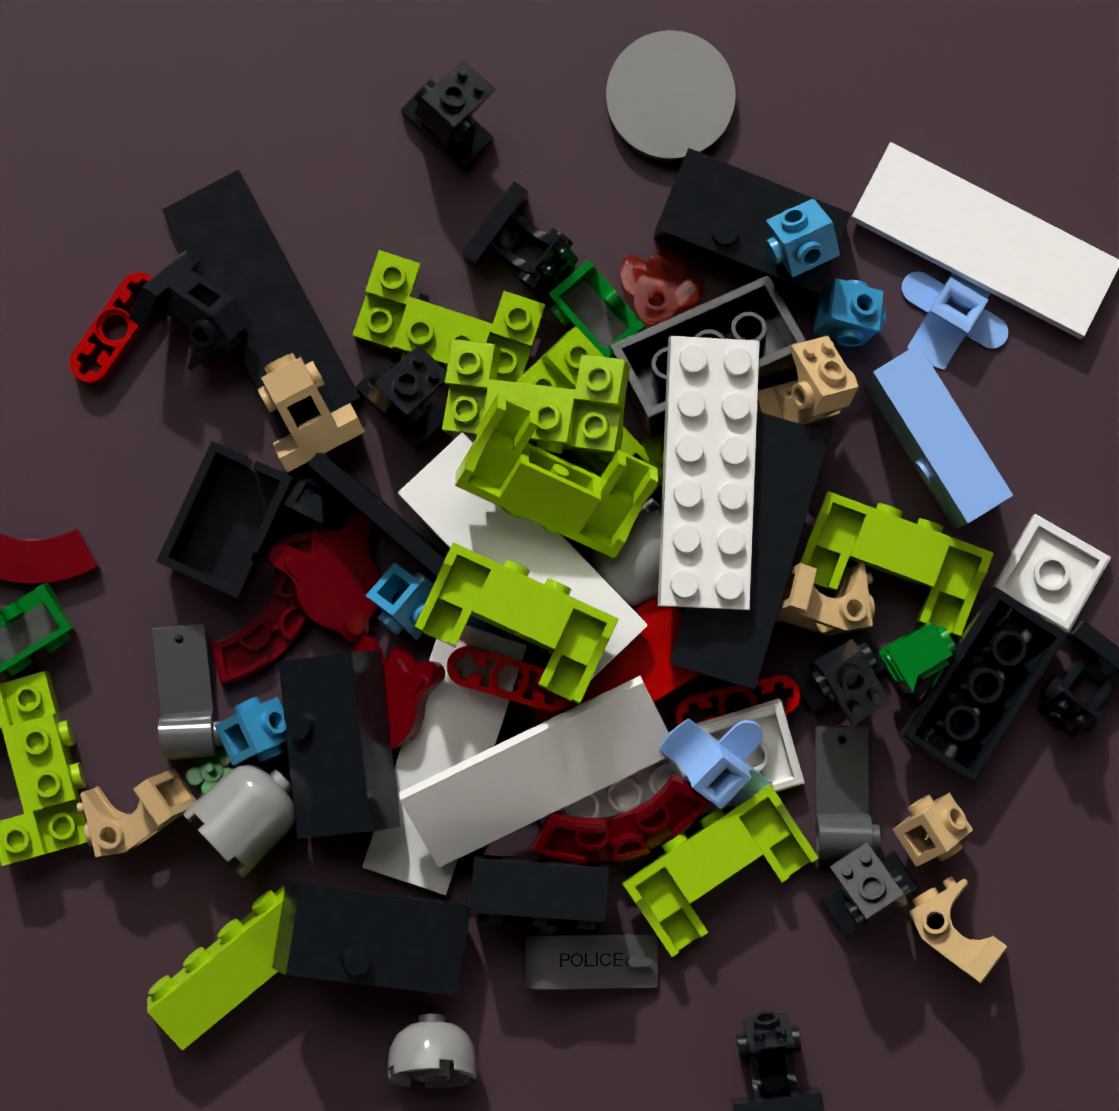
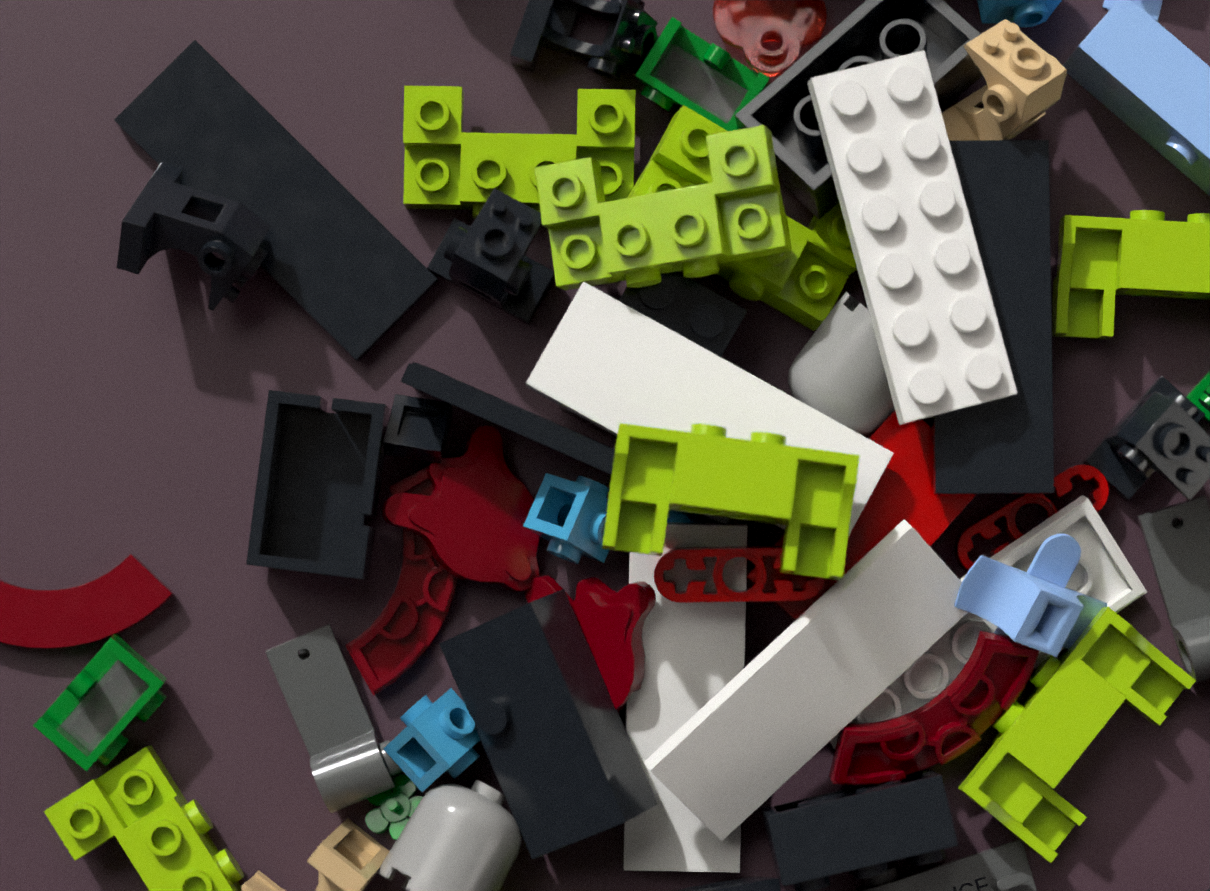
camera: 10 degrees left, 0 degrees up
(110, 310) = (78, 296): red beam -> none
(289, 382) = (344, 287): tan tile -> none
(549, 489) = (718, 318): lime bracket -> none
(844, 614) = (1134, 359): tan tile -> none

